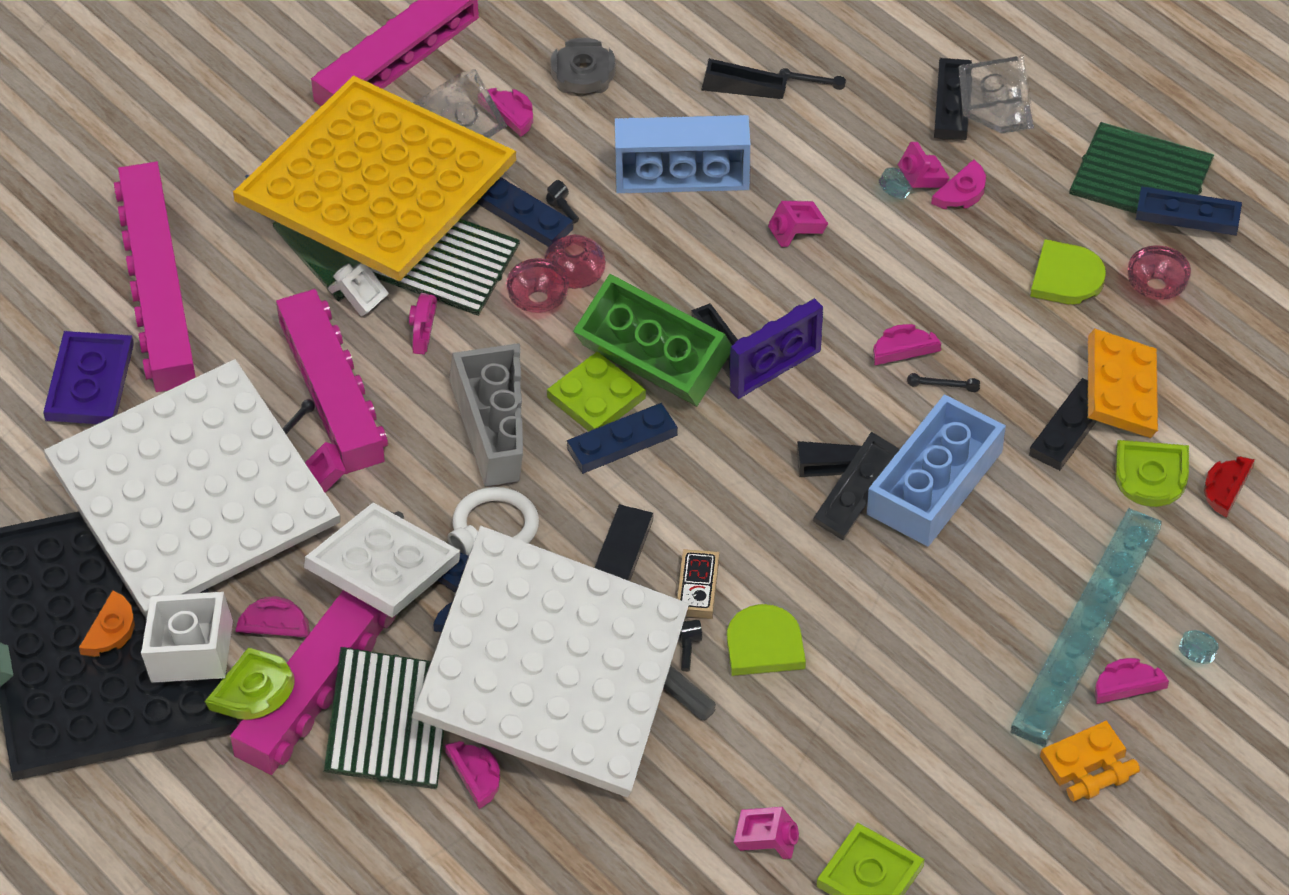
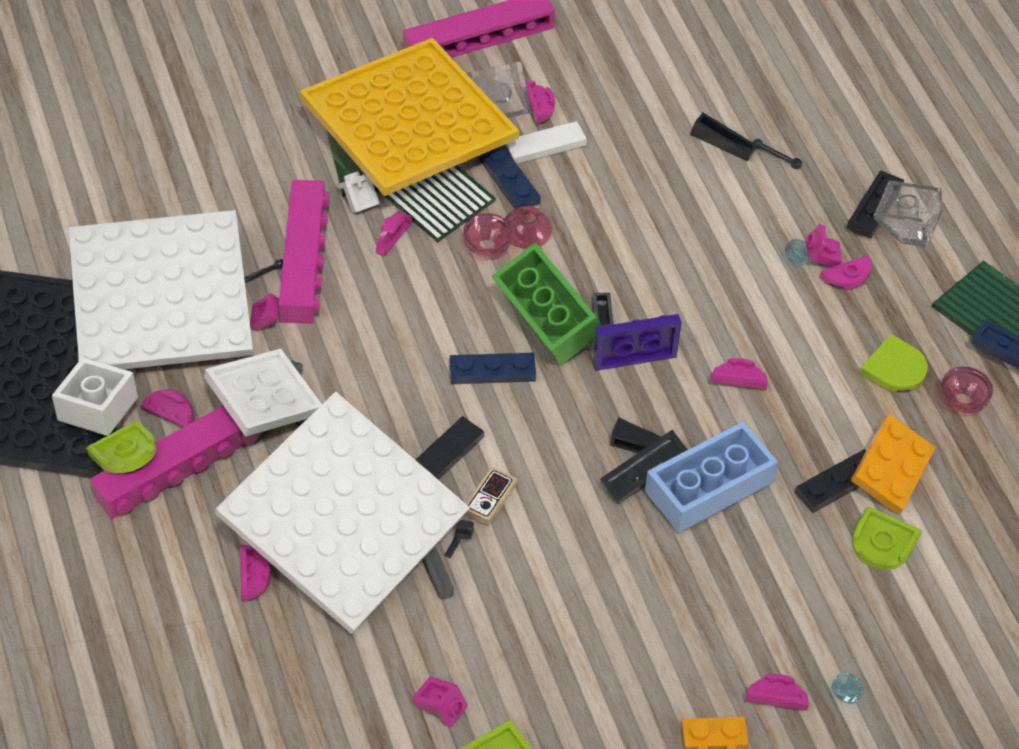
camera: 20 degrees right, 0 degrees up
(88, 377) = (136, 188): dark purple plate -> none
(111, 627) = (50, 371): orange plate -> none
(156, 276) = (221, 133): dark pink brick -> none
(373, 724) = (187, 511): piece -> none
(464, 535) = (376, 375): white piece -> none
(490, 406) = (408, 306): light grey wedge -> none
(546, 154) = (546, 142): none -> white tile
(556, 197) = (540, 173): black hand -> none
(594, 77) = (602, 97): flat silver plate -> none
(596, 393) = (491, 328): lime plate -> none
(682, 154) = (643, 175): light blue brick -> none
(764, 641) = (516, 557): lime tile -> none
(794, 218) = (707, 252): dark pink bracket -> none
(971, 384) = (777, 423): black hinge -> none
(1086, 628) = (766, 639): clear light blue plate -> none
(1225, 483) = (937, 569): red plate -> none

